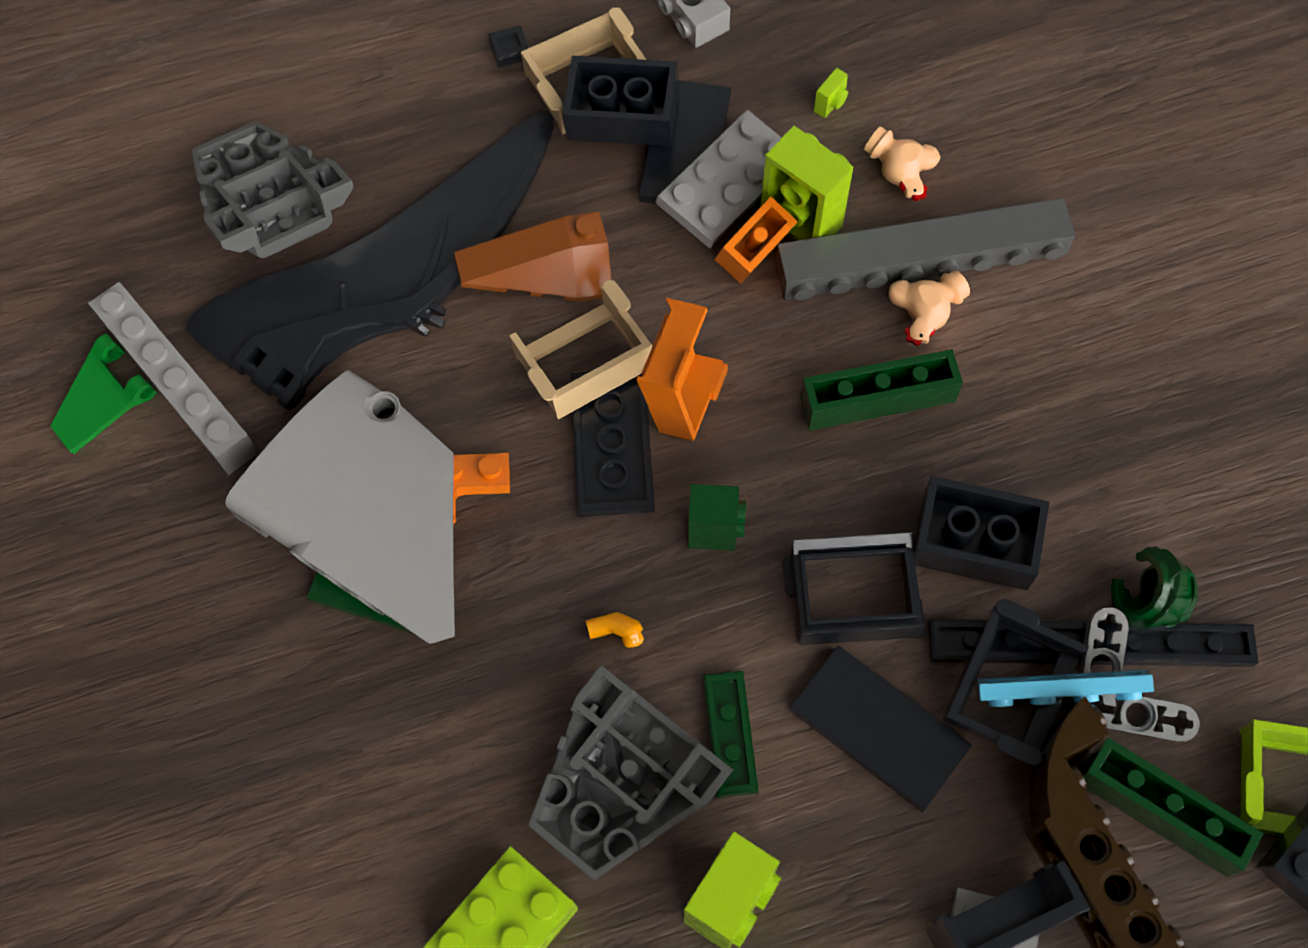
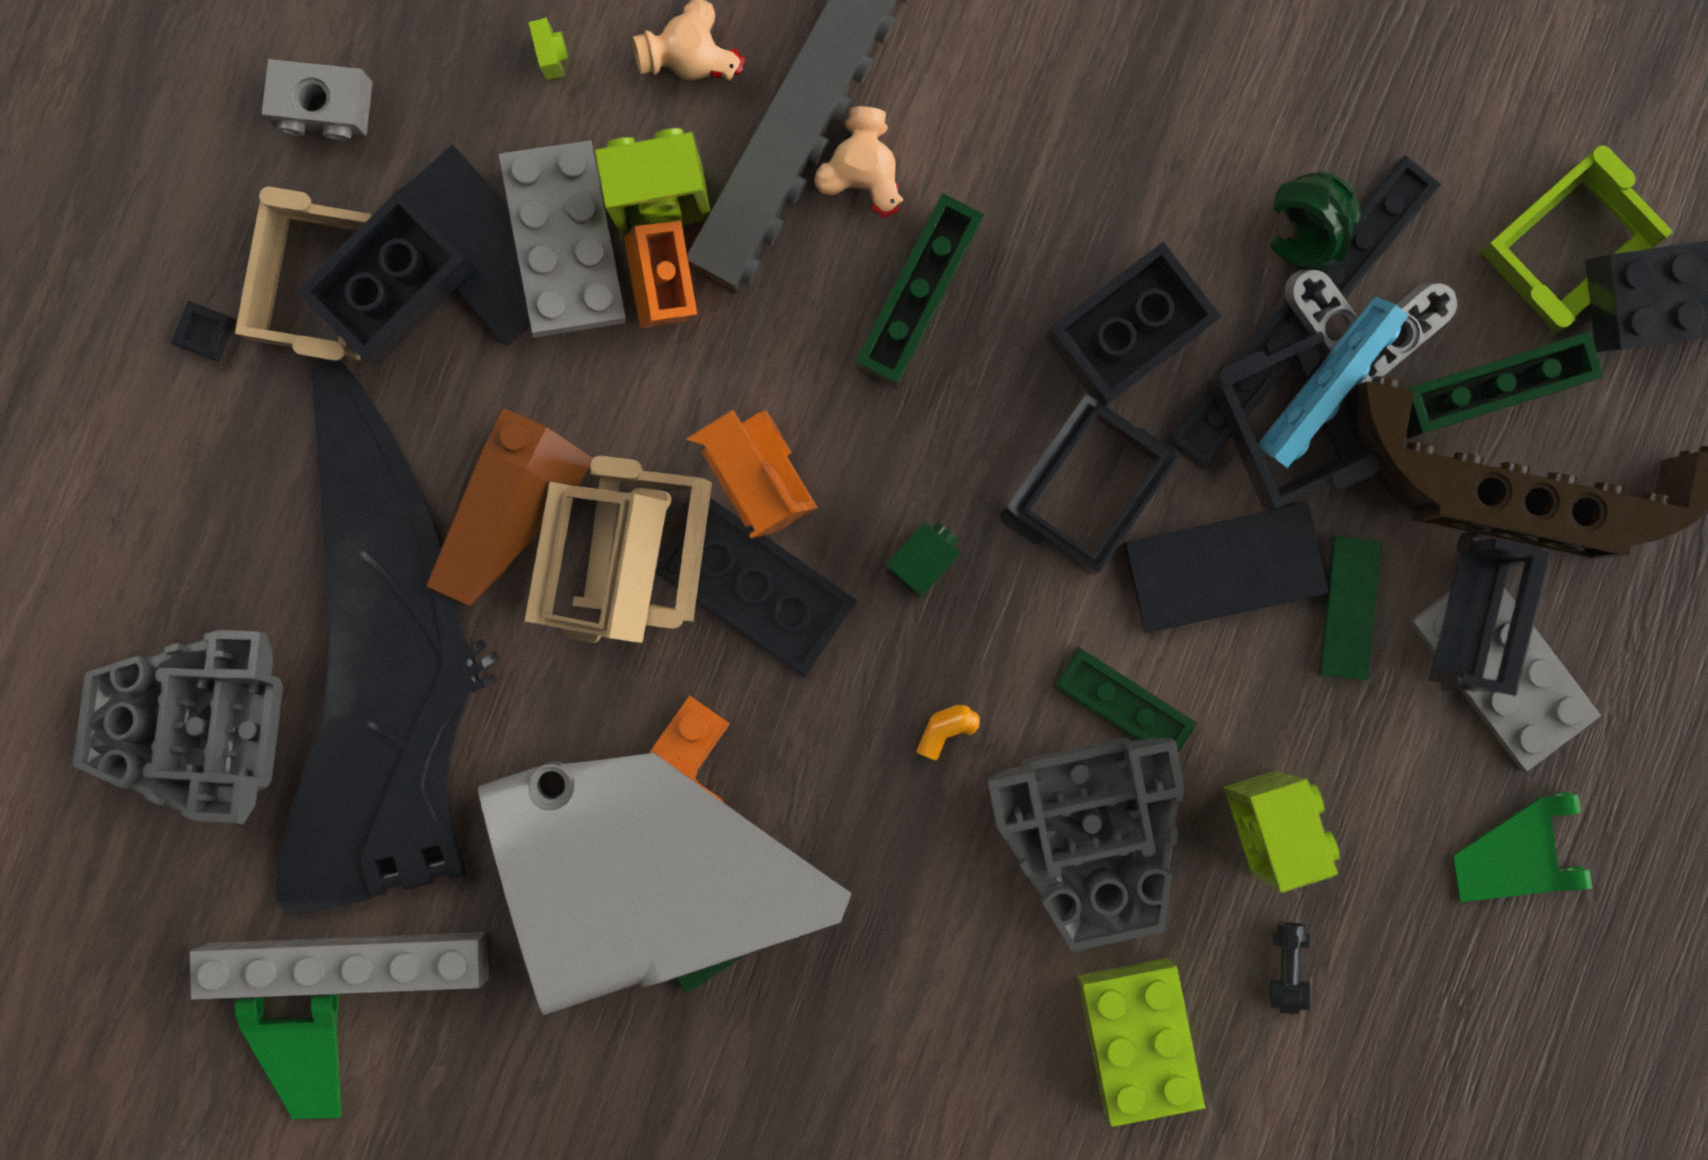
camera: 55 degrees left, 20 degrees up
(555, 342) = (630, 567): none -> tan piece
(927, 836) = (1350, 608): none -> dark green tile

